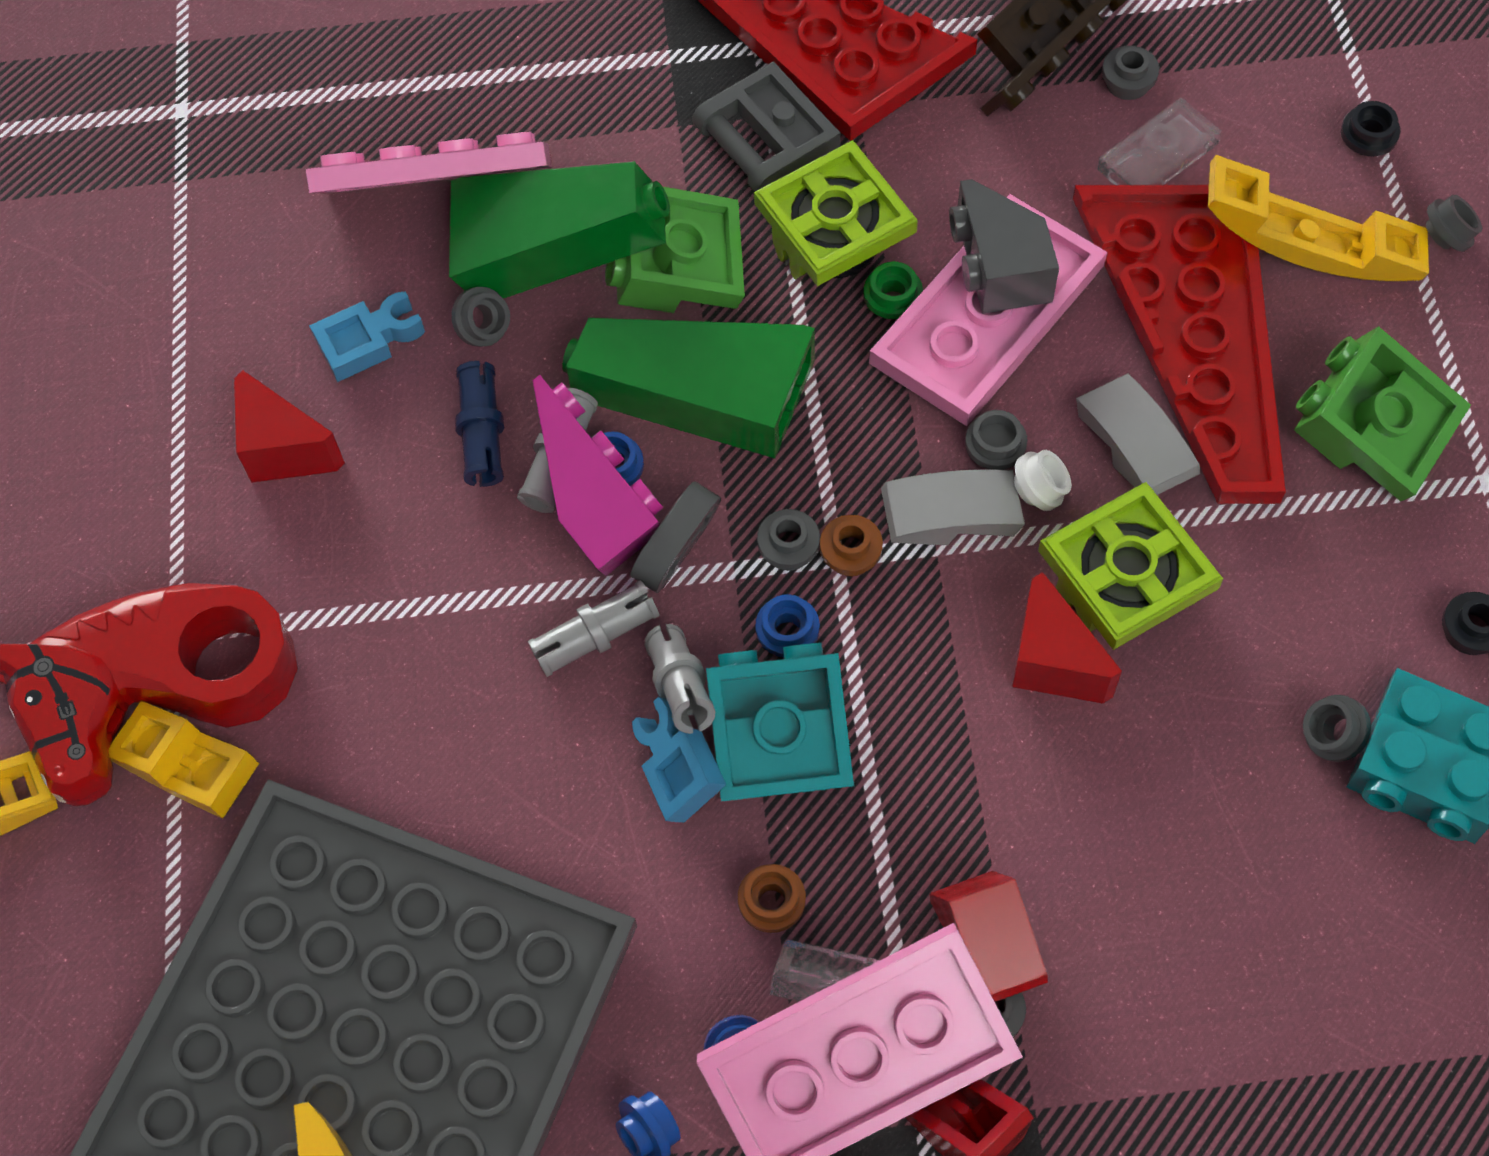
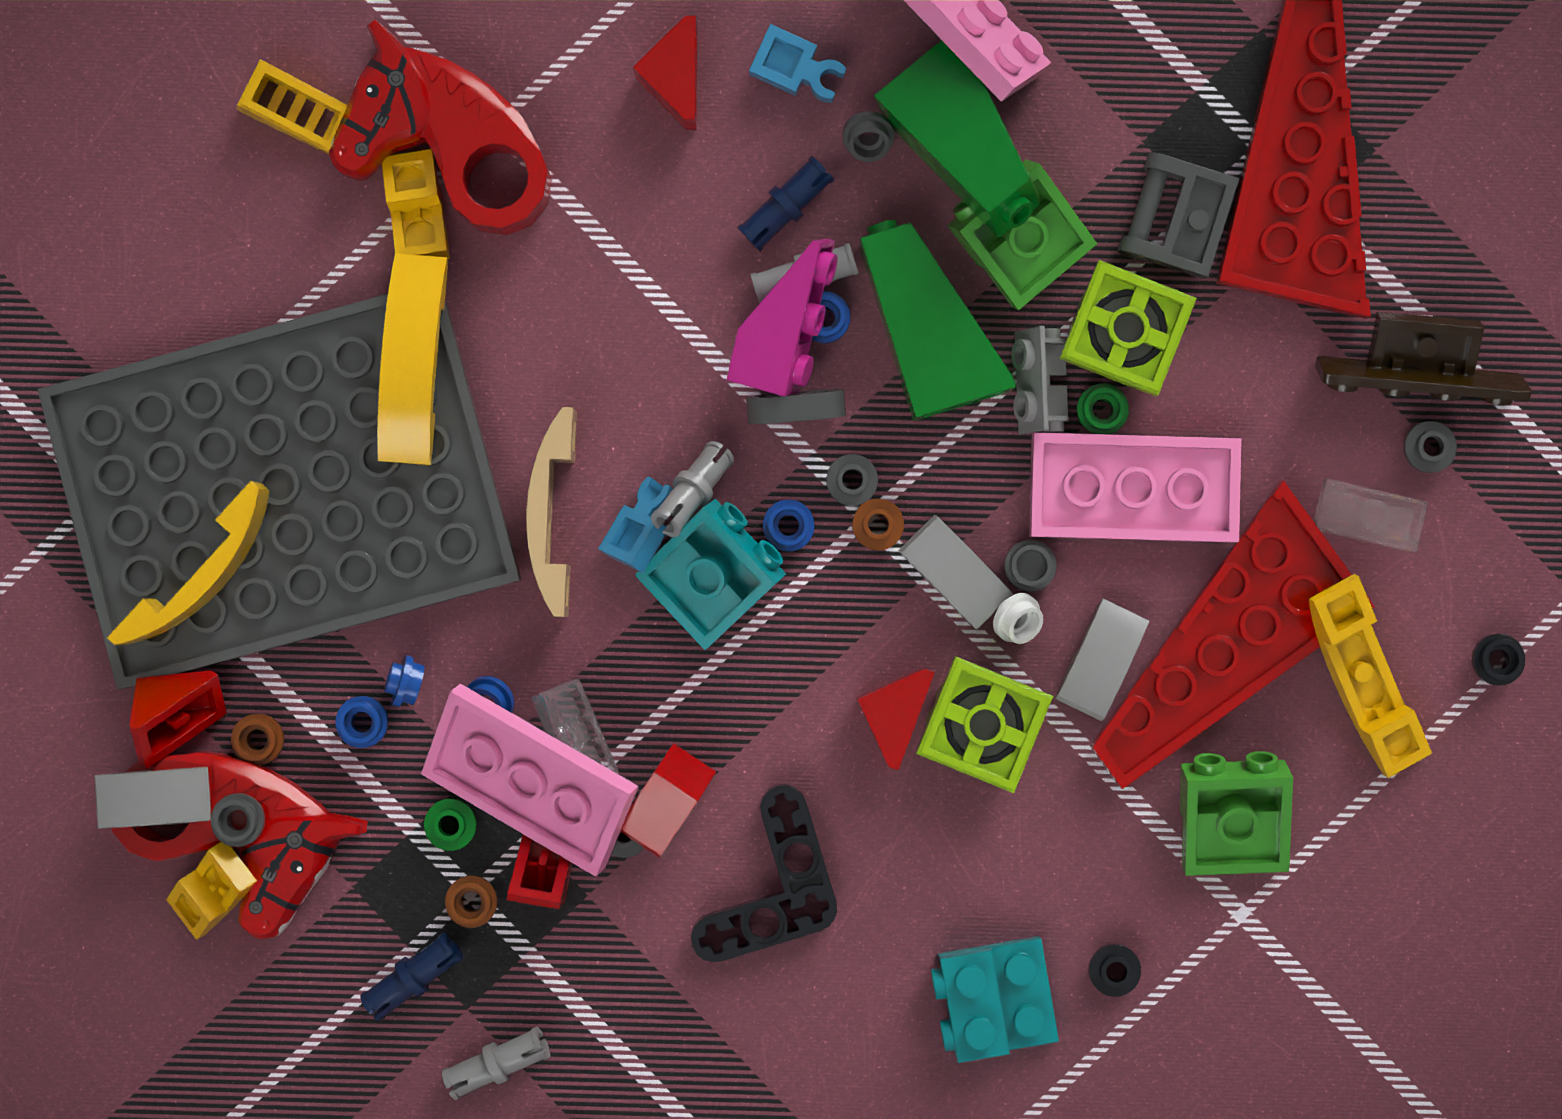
camera: 45 degrees right, 25 degrees up
(325, 859) = (410, 359): none -> yellow slope
(593, 628) = (692, 401): light grey pin -> none
(655, 886) = (557, 446): none -> tan slope
(771, 878) = (581, 650): dark orange plate -> none
(840, 334) = (1038, 403): none -> light grey hinge
(1006, 250) = (1177, 475): dark grey slope -> none
(1173, 875) = (795, 886): none -> black beam
(1320, 725) = (959, 917): dark grey plate -> none
(1453, 223) = (1447, 770): dark grey plate -> none

